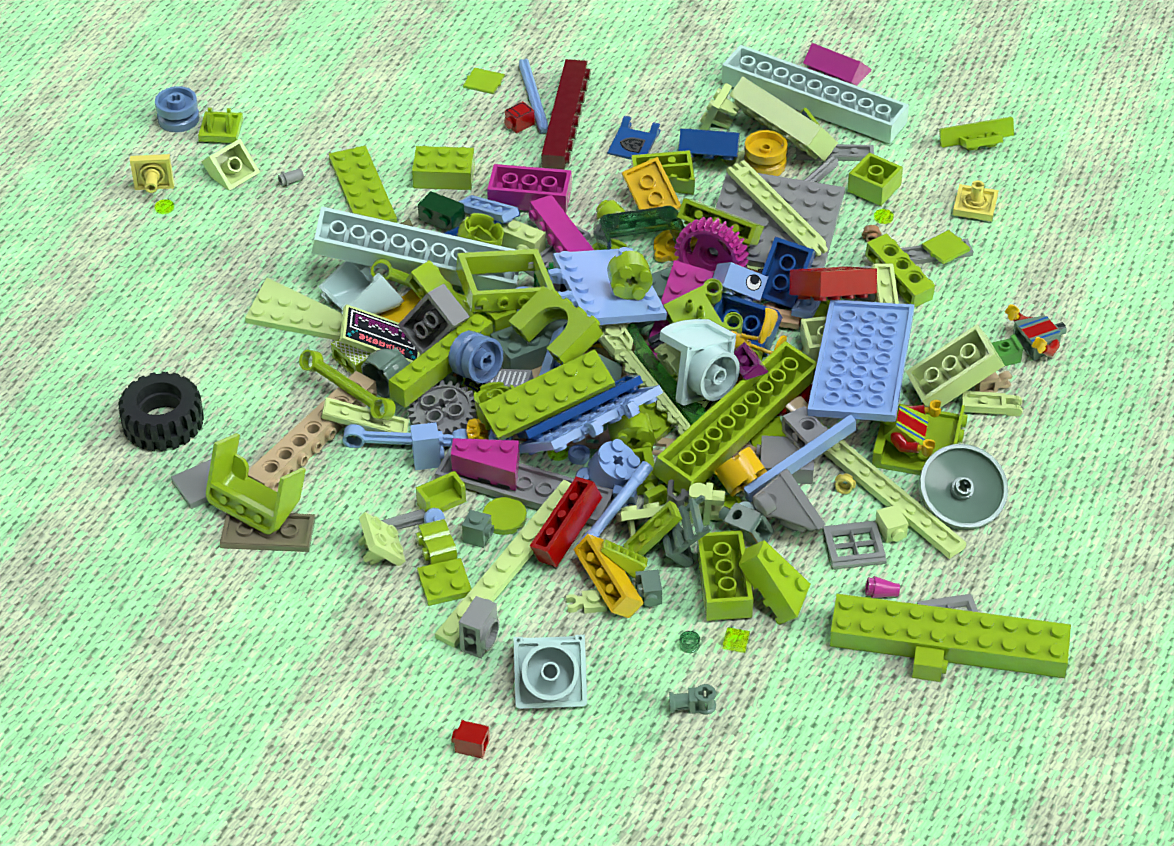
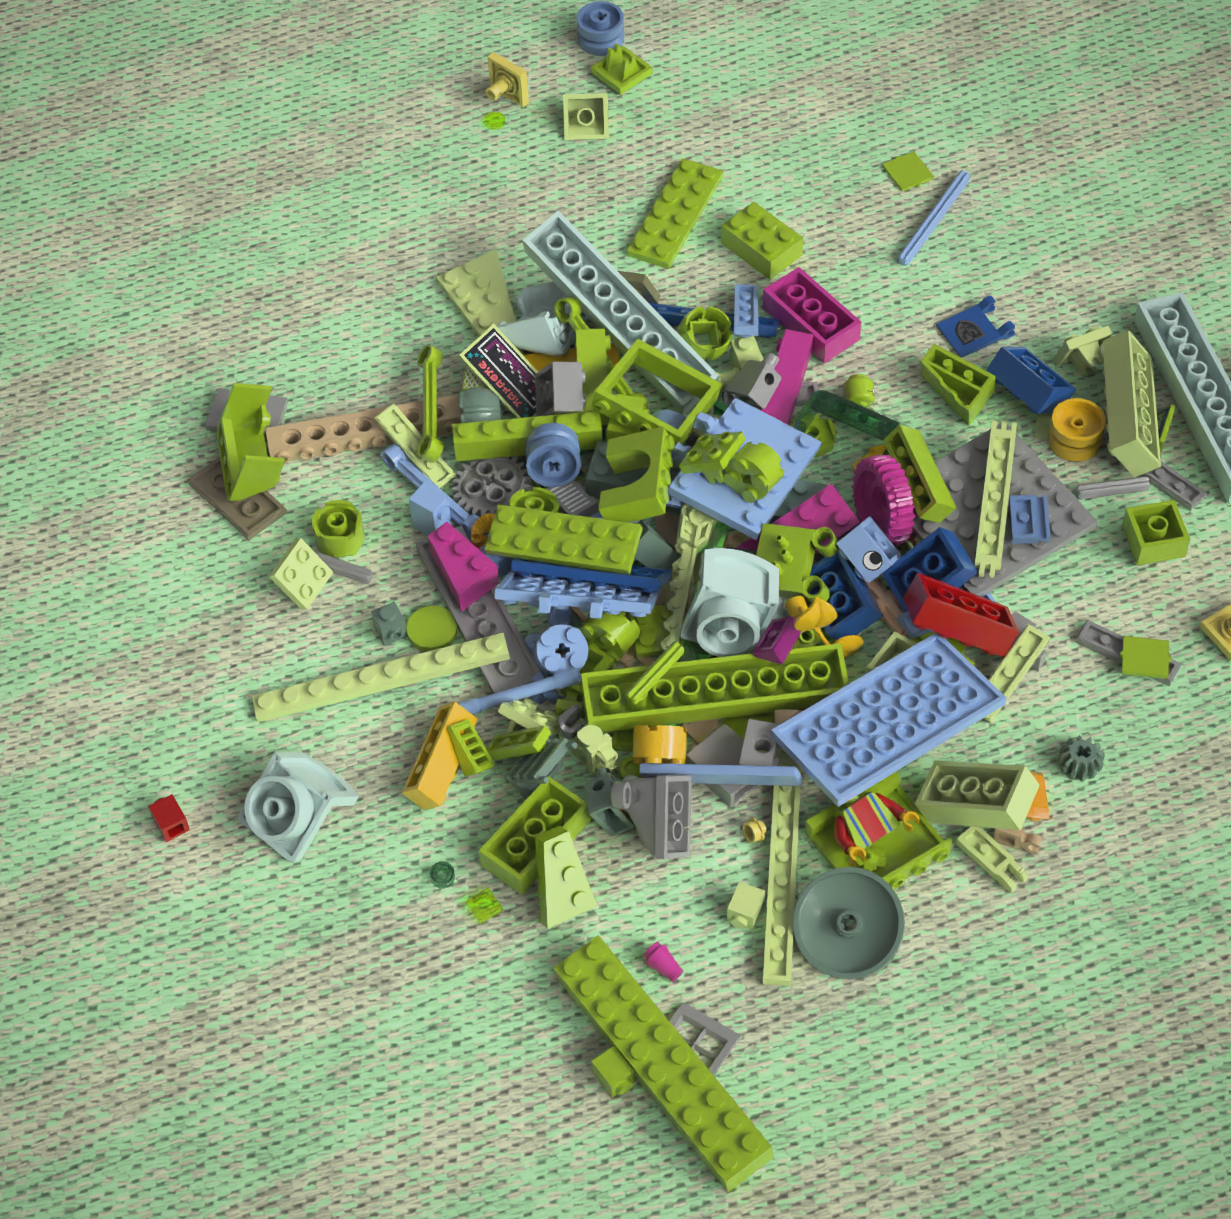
camera: 45 degrees right, 10 degrees up
(164, 429) = (269, 342): black tyre -> none
(290, 177) = (625, 160): light grey pin -> none
(373, 496) = (338, 529): none -> lime brick
(433, 515) = (369, 586): light blue piece -> none
(436, 542) = (346, 611): lime brick -> none
(441, 211) = (707, 283): dark green brick -> none
(441, 493) = (397, 567): lime panel -> none
(444, 581) = (315, 652): lime plate -> none
(479, 627) = (281, 718): light grey brick -> none
(519, 117) = (890, 232): red brick -> none
(551, 238) = (756, 381): none -> light grey torso
(565, 114) = (937, 257): dark red brick -> none
(566, 521) = (458, 675): red brick -> none
(590, 601) = (402, 764): yellowish green plate -> none
(595, 281) = (712, 454): none -> lime plate
(649, 587) = (464, 796): sand green brick -> none
(650, 186) = (919, 392): yellow tile -> none
(694, 700) = (379, 934): sand green connector -> none
(702, 426) = (654, 672): none -> lime axle
(811, 207) = (1029, 519): none -> medium blue plate
(856, 560) = (679, 916): light grey piece -> none
(871, 232) = (1088, 589): nougat plate -> none
(883, 216) = (1128, 578): clear neon green piece -> none
(909, 278) = (1056, 686): lime brick -> none
(975, 315) = (1081, 758): none -> sand green gear
(1009, 350) = (1069, 814): bright green brick -> none
(1036, 334) = (1123, 819): torso -> none

